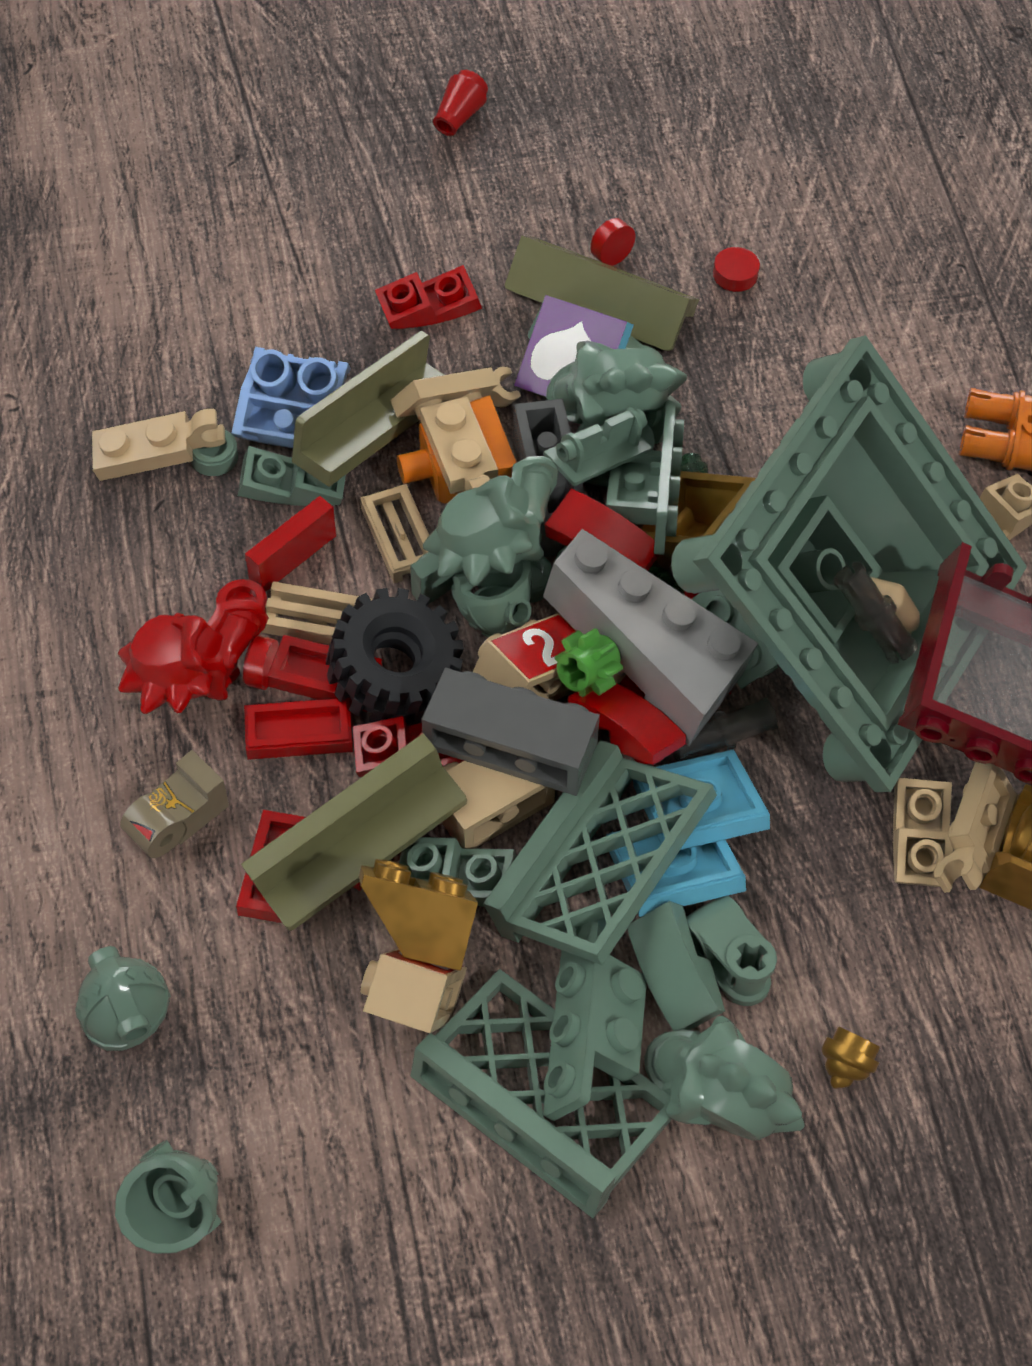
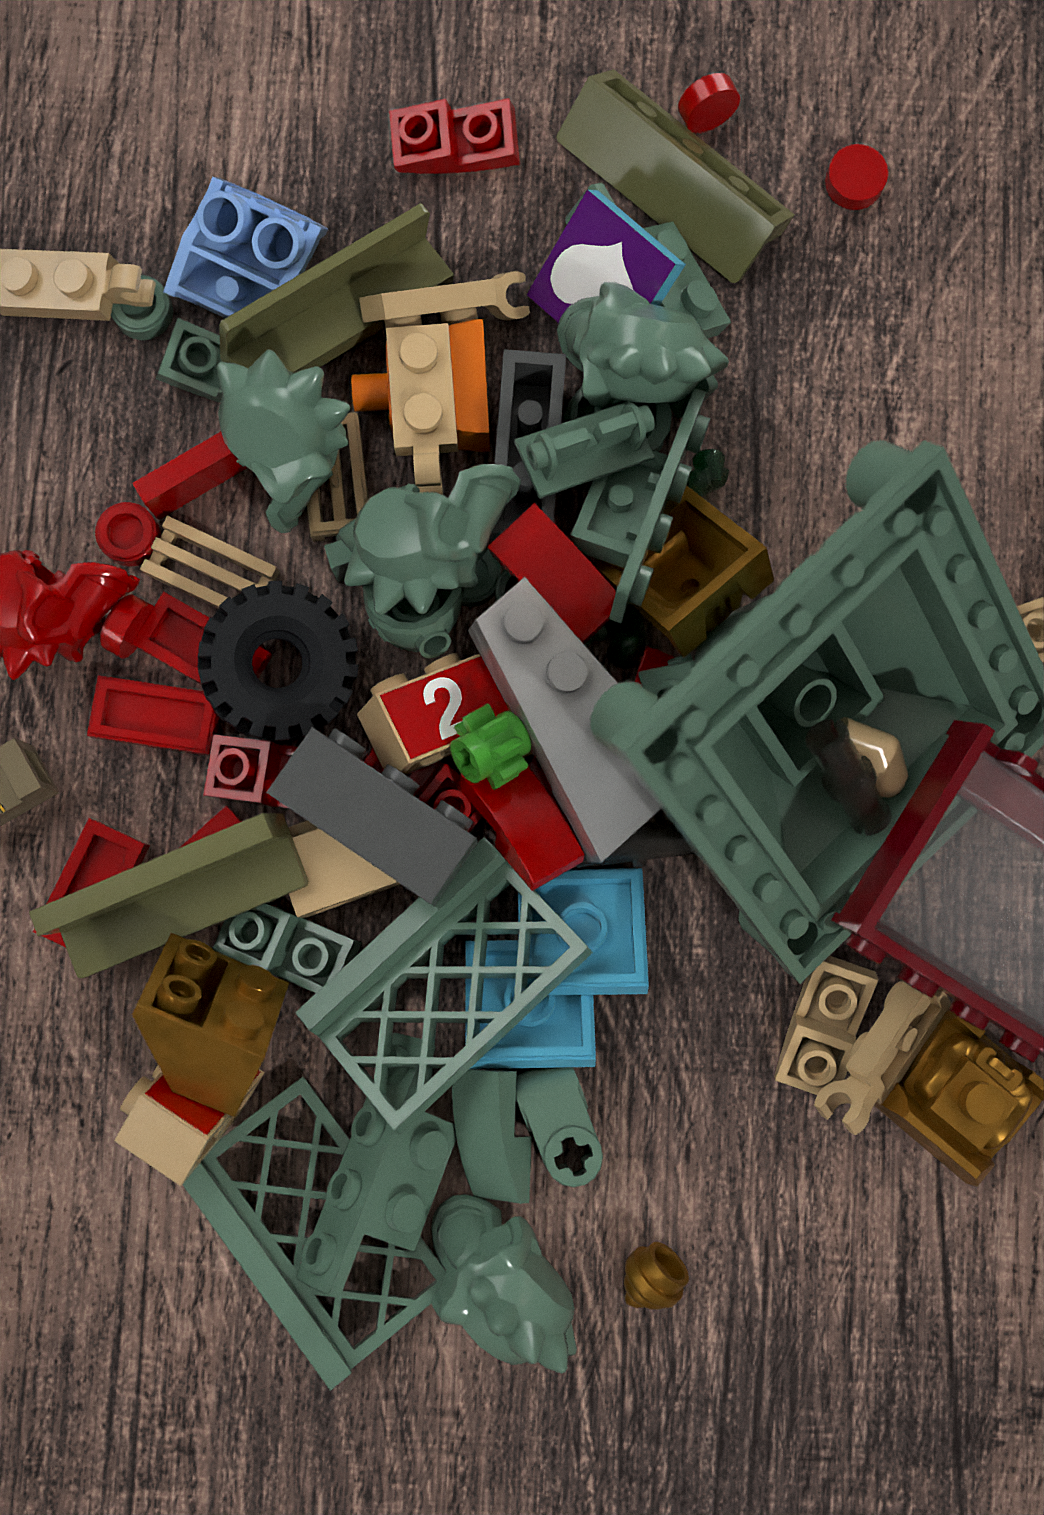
camera: 15 degrees right, 25 degrees up
(361, 481) = (281, 431): none -> sand green head

